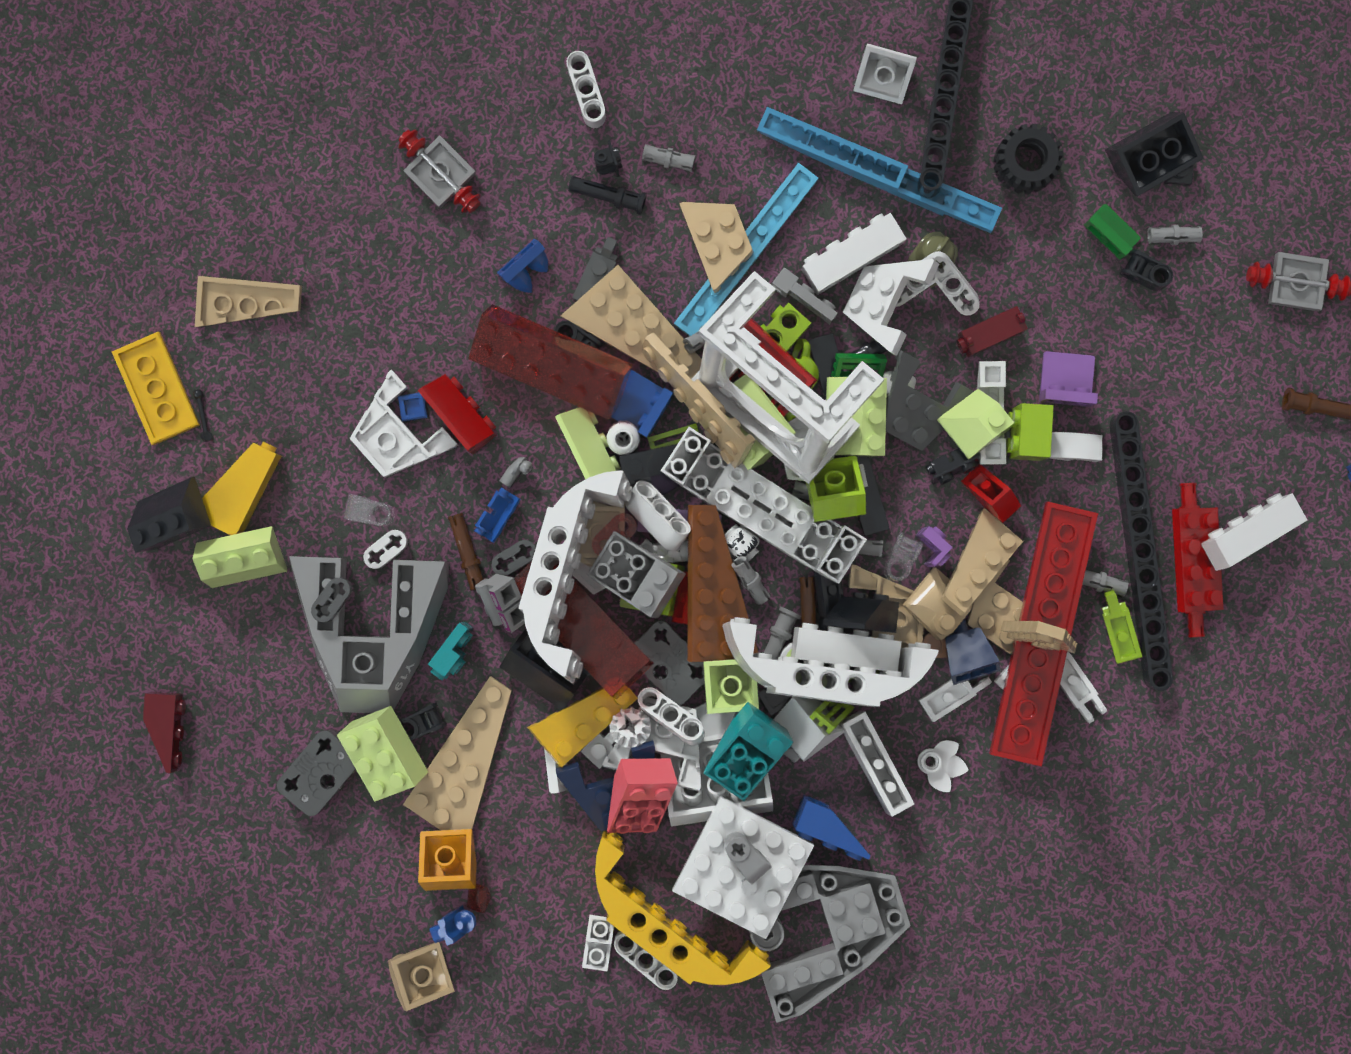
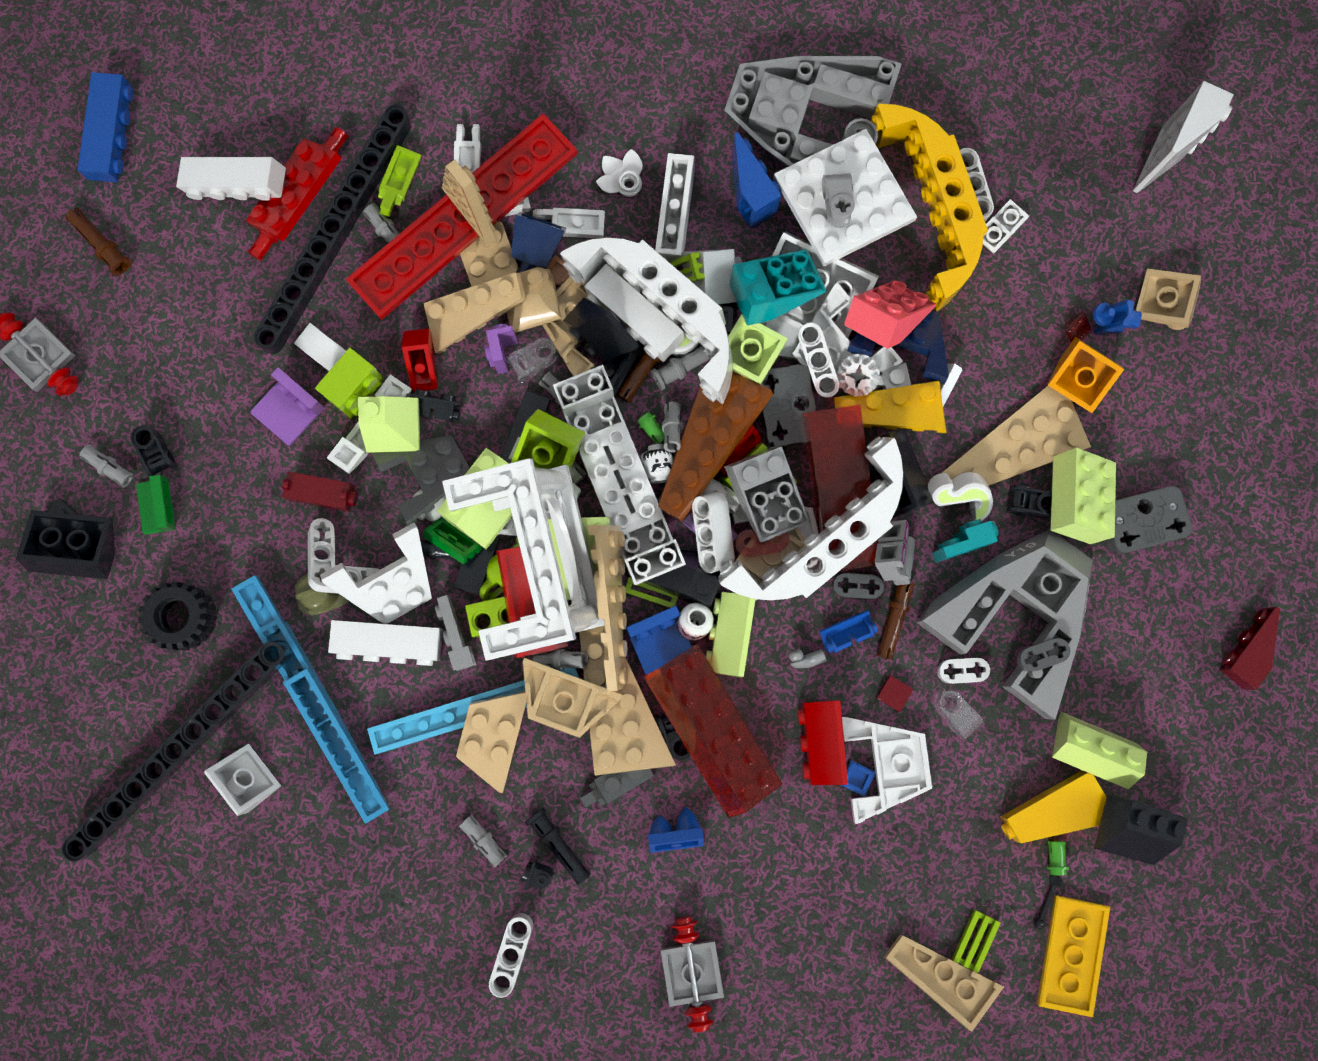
camera: 150 degrees left, 5 degrees down
(216, 453) = (1057, 858): none -> bright green pin
(228, 348) = (976, 941): none -> lime tile
(428, 493) = (894, 693): none -> dark red tile
(483, 691) = (964, 488): none -> white animal
(679, 303) = (564, 700): none -> tan wing
(766, 569) = (652, 428): none -> bright green pin

